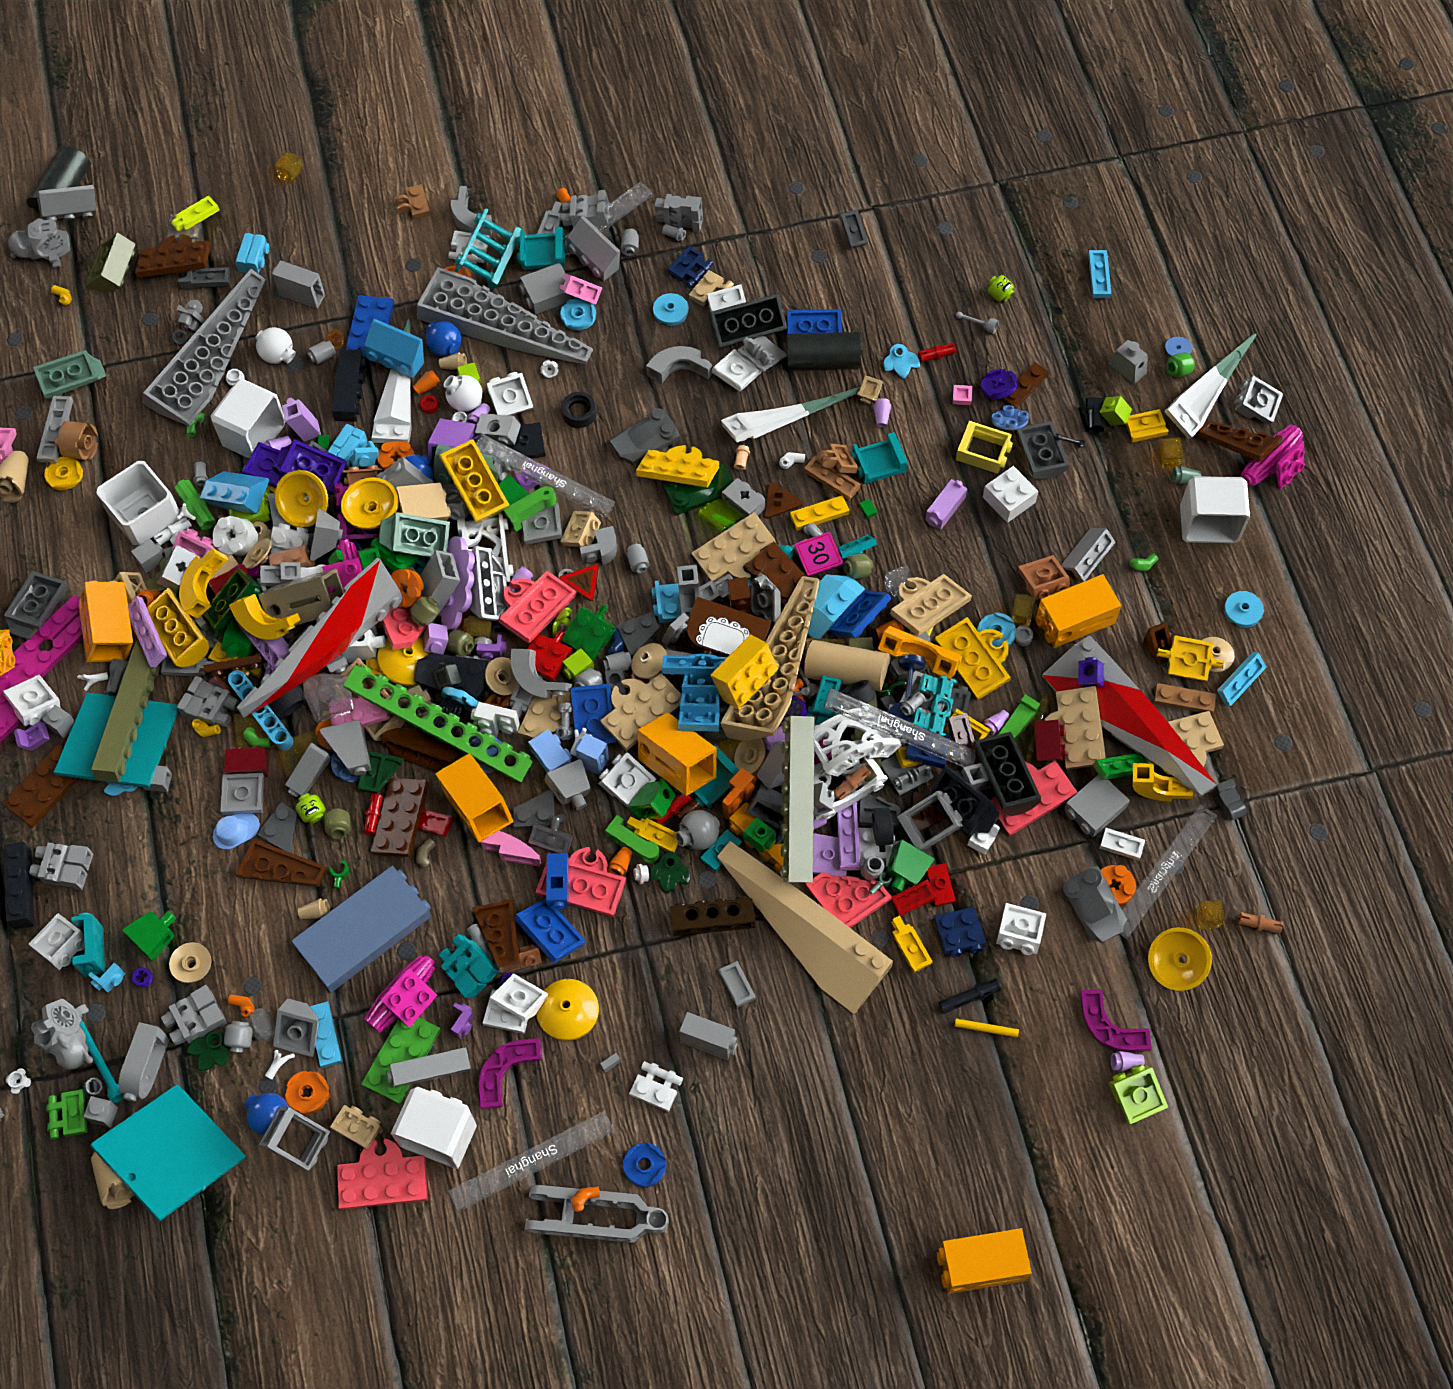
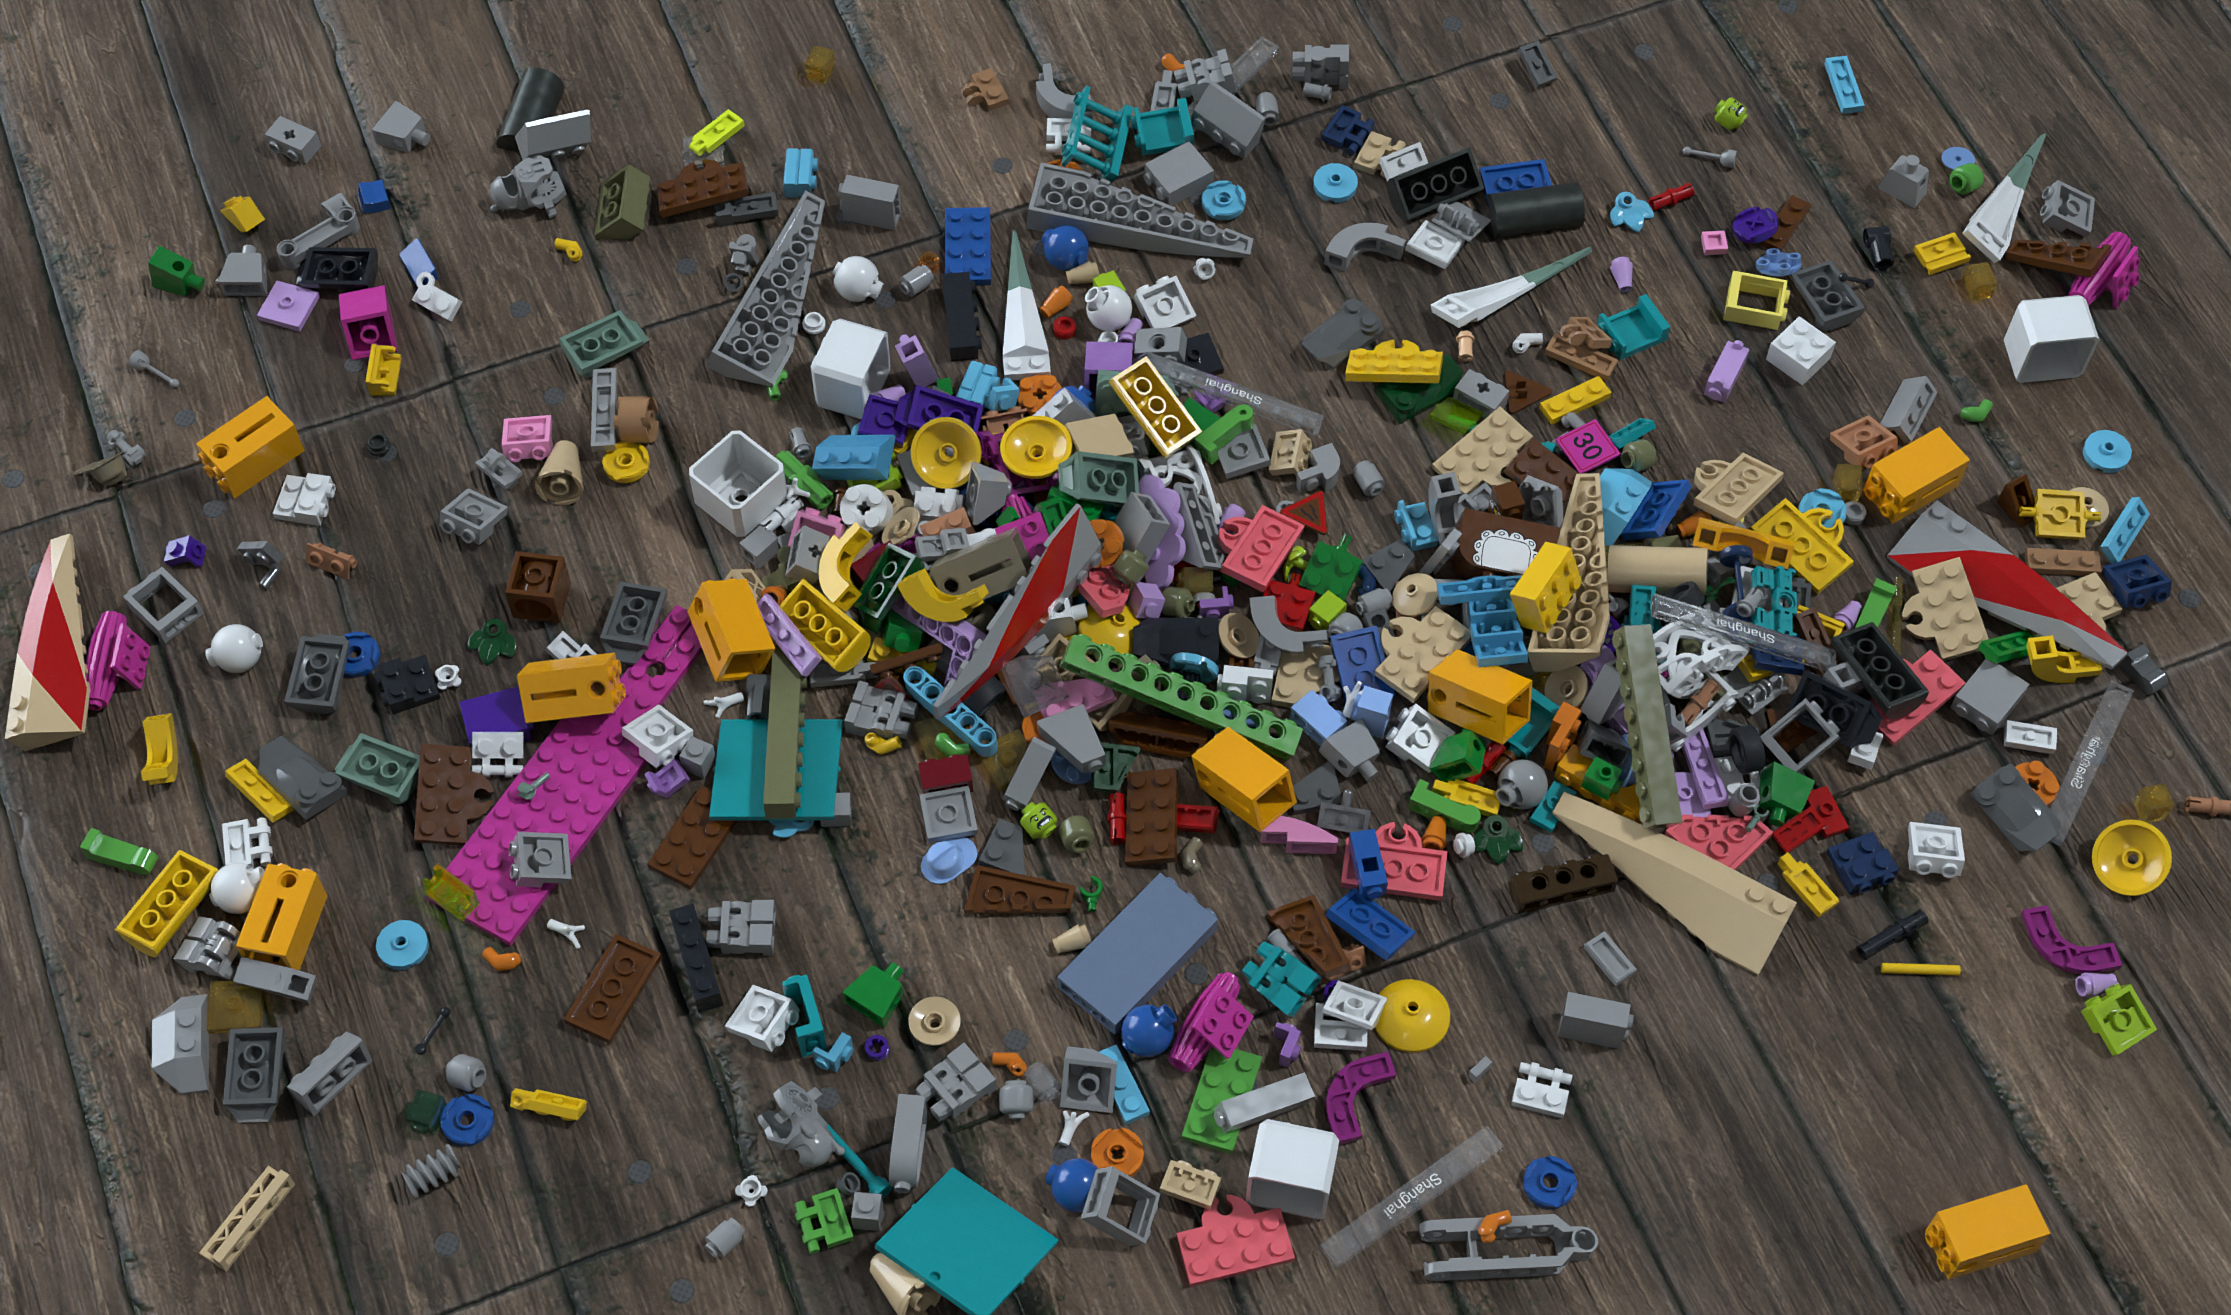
camera: 10 degrees left, 5 degrees down
(207, 1052) = (983, 1126): dark green plate -> none
(352, 994) = (1148, 1030): none -> blue brick
(394, 348) = (1013, 263): dark azure slope -> none
(447, 676) = (1172, 642): pearl dark grey slope -> none
(581, 288) = (1223, 168): bright pink hinge -> none
(582, 421) = (1252, 298): black tyre -> none
(868, 508) = (1632, 388): green piece -> none
(869, 389) = (1602, 249): tan bracket -> none
(895, 578) = (1687, 464): clear bracket -> none
(1049, 741) = (1918, 628): dark red brick -> none
(1096, 678) = (1953, 551): dark purple brick -> none
(1115, 410) = (1904, 239): lime brick -> none
(1183, 474) = (2001, 305): sand green cone -> none
(1241, 723) = (2138, 581): none -> dark blue plate

